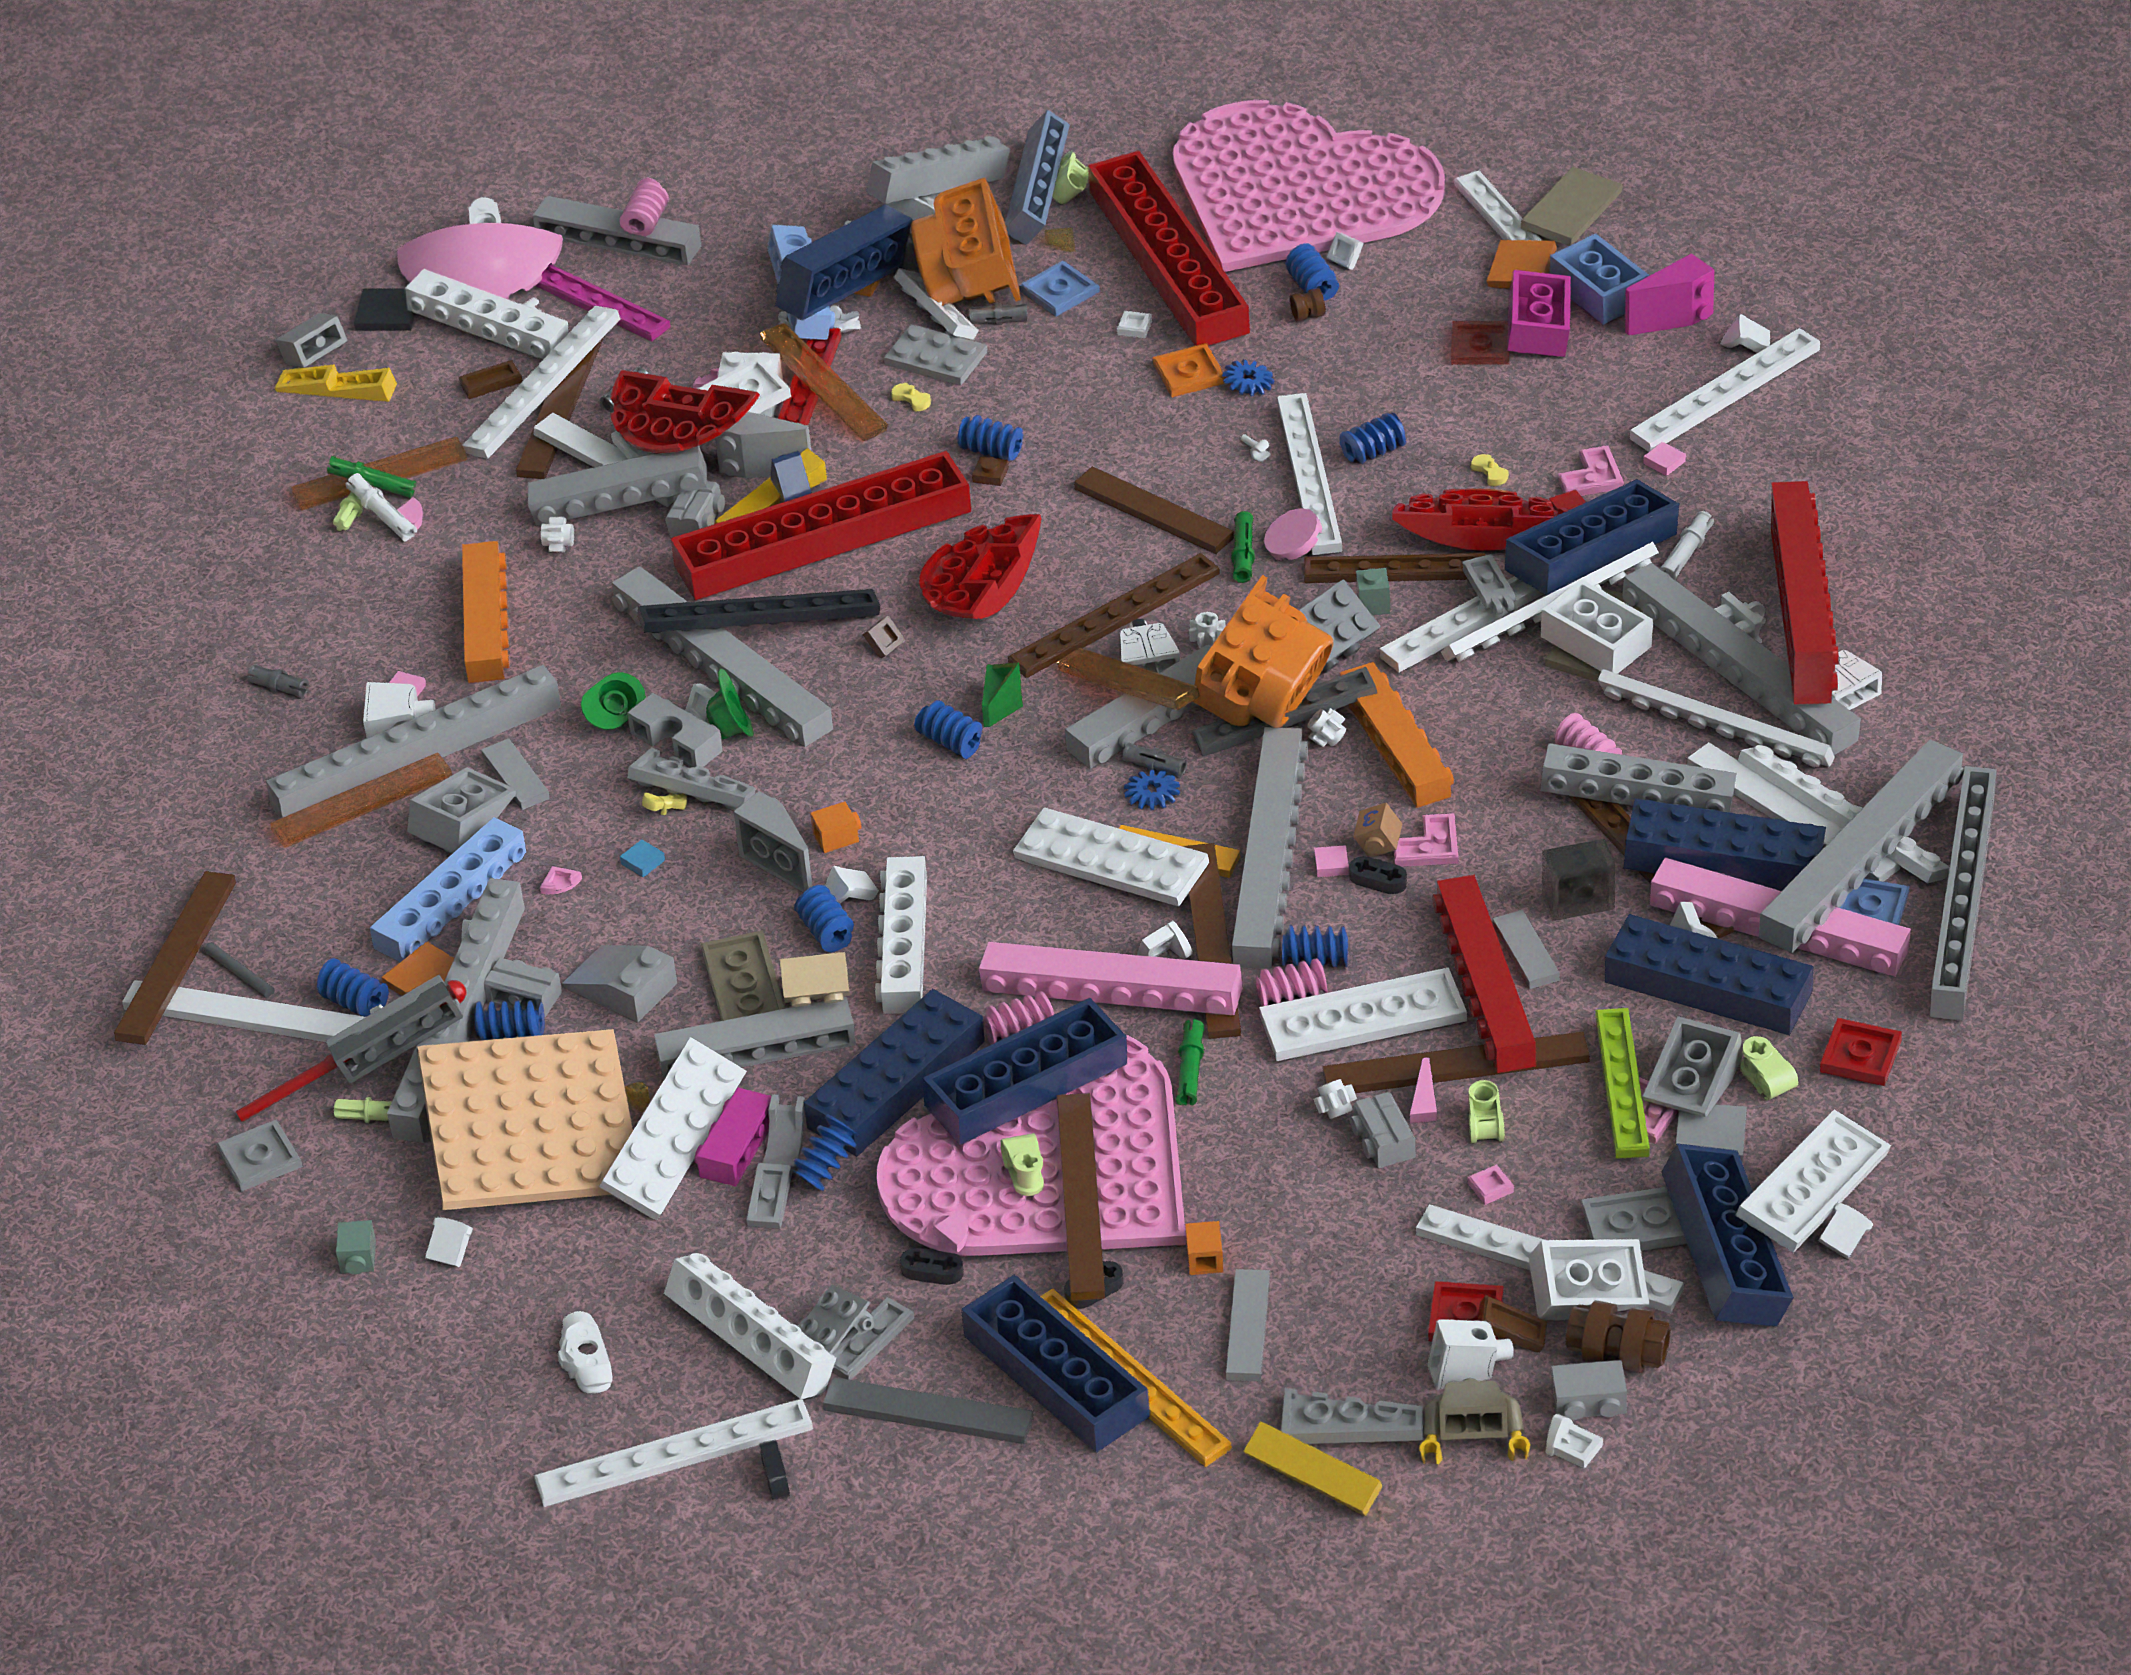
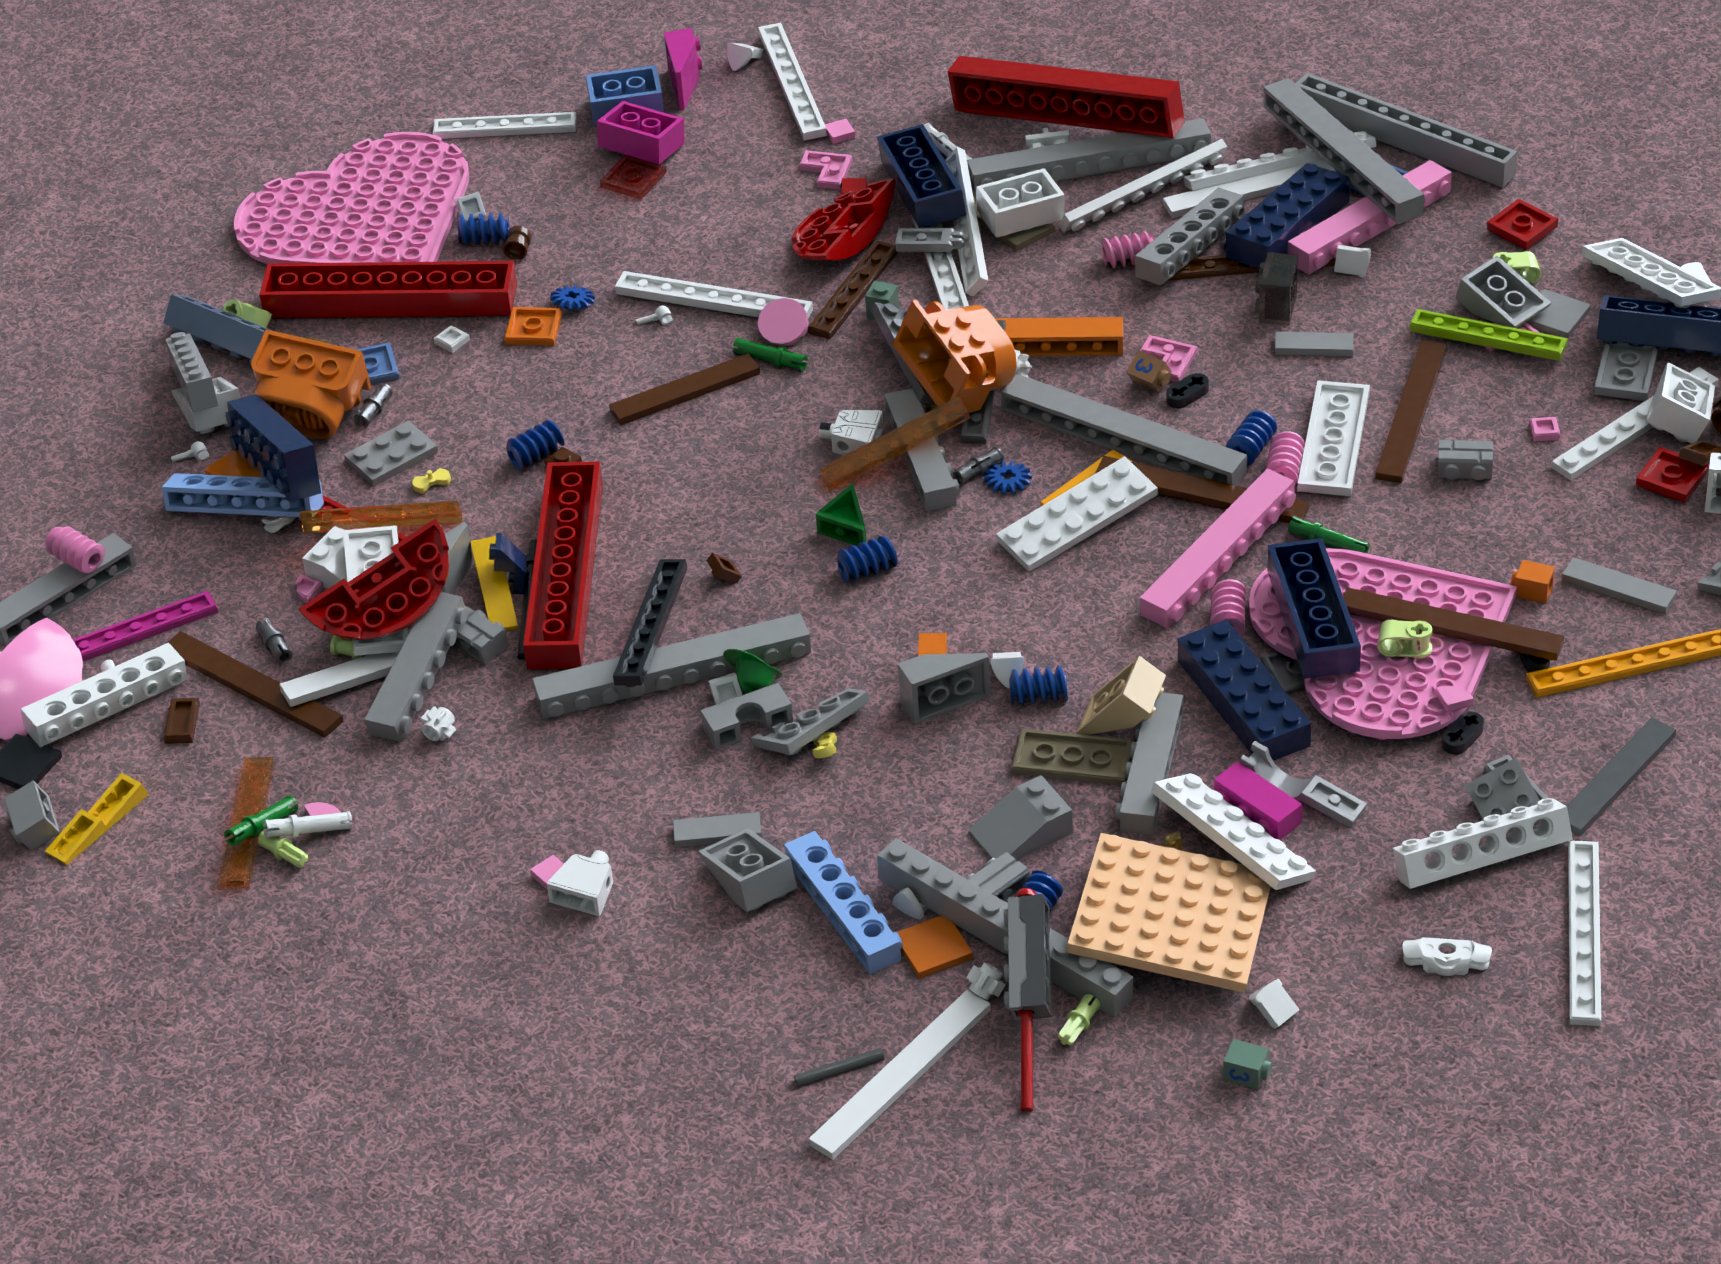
camera: 65 degrees left, 0 degrees up
(174, 958) = (804, 1101): reddish brown tile -> none
(259, 1155) = (1084, 1107): light grey tile -> none
(278, 680) = (478, 952): flat silver pin -> none
(350, 987) = (925, 990): blue piece -> none
(361, 800) = (677, 936): clear orange tile -> none
(438, 731) = (641, 881): light grey brick -> none
(484, 612) = (499, 794): orange brick -> none
(541, 382) = (223, 685): white plate -> none
(559, 879) = (870, 835): bright pink tile -> none
(610, 700) = (687, 739): green piece -> none
(642, 858) = (880, 778): dark azure tile -> none
(774, 1469) = (1640, 873): black beam -> none
(824, 1152) = (1318, 749): blue piece -> none
(903, 934) = (1078, 644): white brick -> none
(945, 315) = (345, 433): white plate -> none
(982, 570) = (686, 496): red brick -> none
(1055, 1363) = (1617, 686): dark blue brick -> none
(1114, 614) = (791, 444): reddish brown tile -> none
(1163, 939) = (1192, 513): white tile -> none
(1205, 629) = (855, 395): white gear -> none
(1331, 861) = (1155, 409): bright pink tile -> none
(1335, 1098) = (1419, 472): white gear -> none
(1372, 436) = (706, 253): blue piece -> none
(1424, 1104) = (1436, 427): bright pink piece -> none
(1484, 974) = (1338, 362): red brick -> none
(1485, 1112) = (1476, 407): yellowish green piece -> none
(1495, 474) = (789, 212): light yellow piece -> none
(1519, 255) = (567, 128): orange tile -> none
(1571, 206) = (521, 88): dark tan tile -> none
(1709, 974) = (1406, 264): dark blue brick -> none

